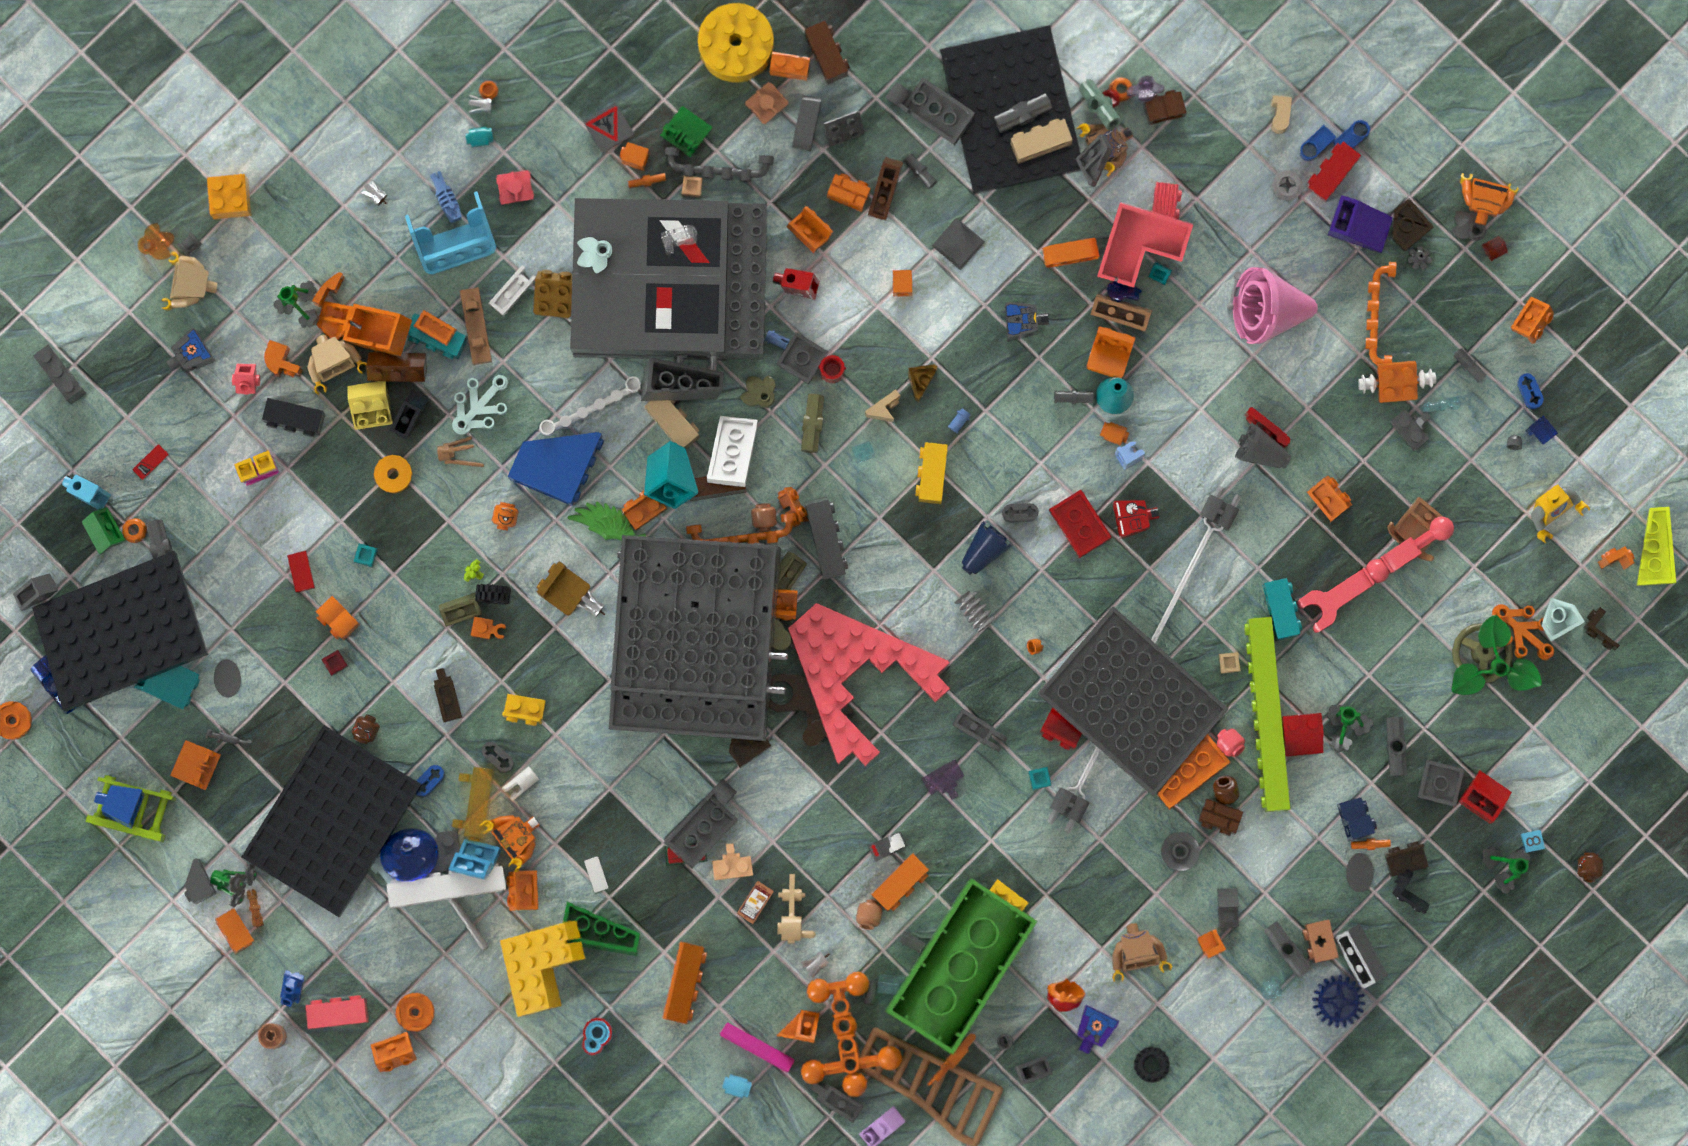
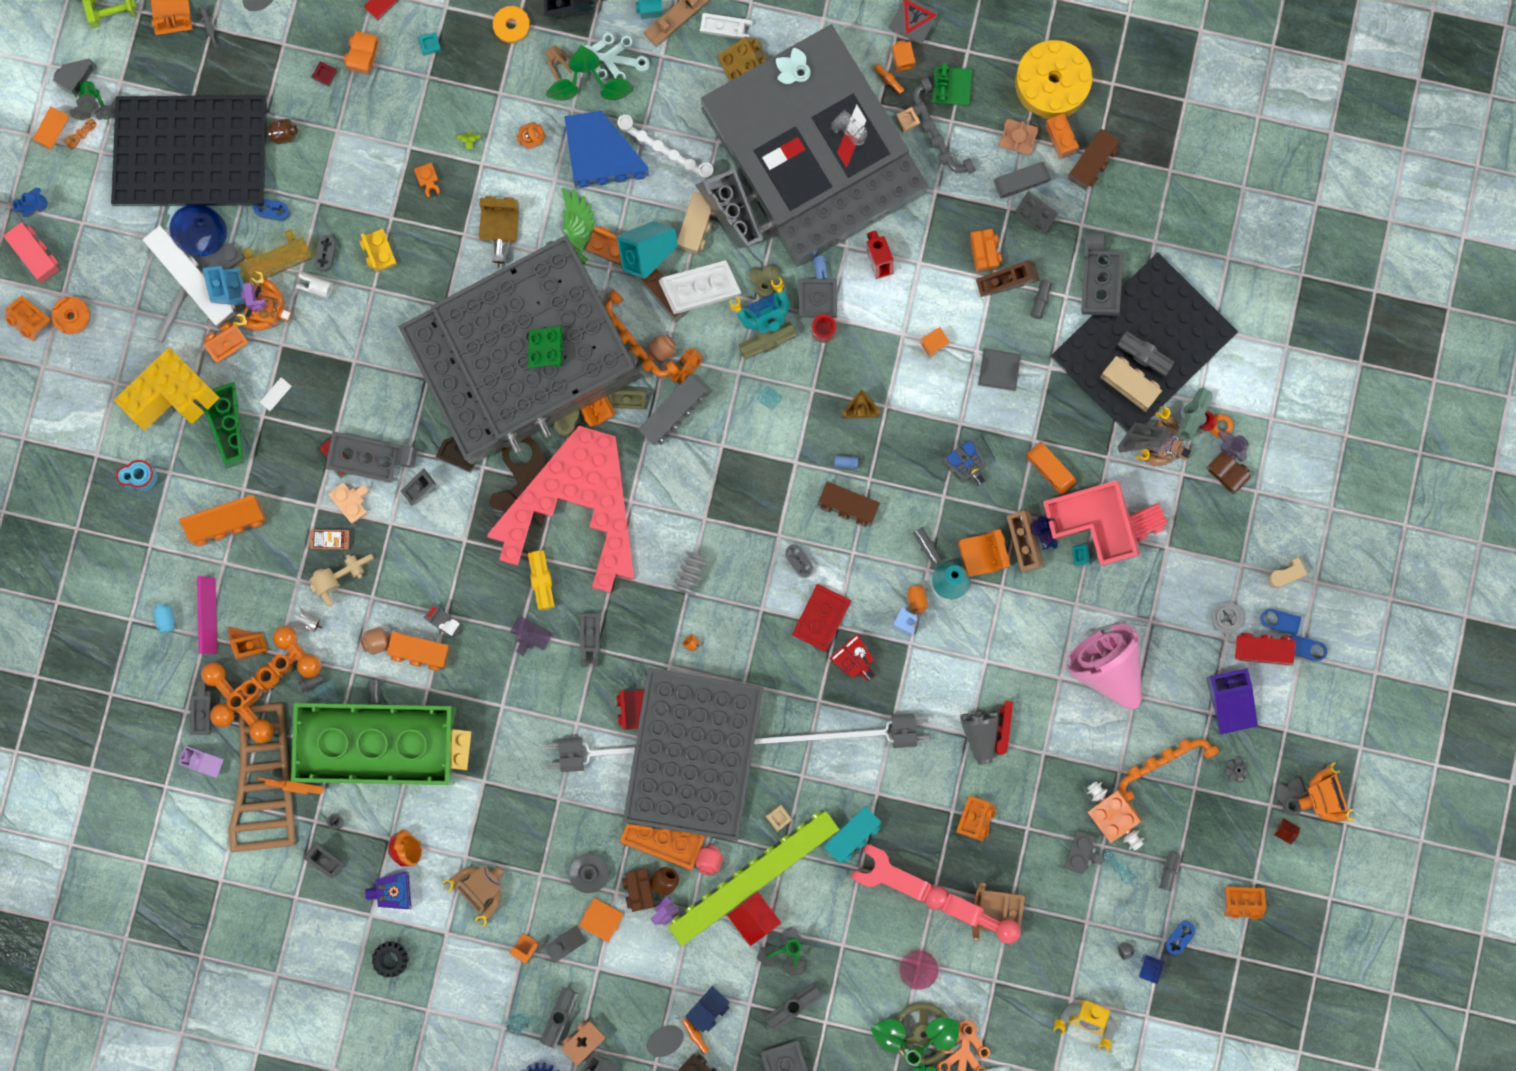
camera: 55 degrees right, 0 degrees up
(447, 697) = (350, 181): dark brown hinge -> none
(459, 609) = (430, 147): olive slope -> none
(474, 428) = (582, 62): none -> green plant
(492, 594) = (457, 164): black tyre -> none
(499, 843) = (248, 295): none -> medium lavender bracket
(711, 611) = (545, 347): none -> green hinge
(757, 797) = (418, 487): none -> dark grey slope
(789, 409) = (765, 313): none -> teal torso
(810, 229) = (932, 238): orange bracket -> none
(879, 410) = (814, 388): tan slope -> none
(903, 741) = (541, 580): none -> yellow piece
(931, 472) = (786, 465): yellow brick -> none
(984, 549) = (748, 549): dark blue cone -> none
(997, 441) = (848, 504): none -> reddish brown brick
(1040, 778) = (580, 715): teal tile -> none
(1225, 865) = (601, 920): none -> orange piece
(1251, 805) = (665, 912): none -> medium lavender bracket
(1409, 225) = (1259, 744): dark brown plate -> none
(1427, 623) = (918, 970): none -> clear pink tile

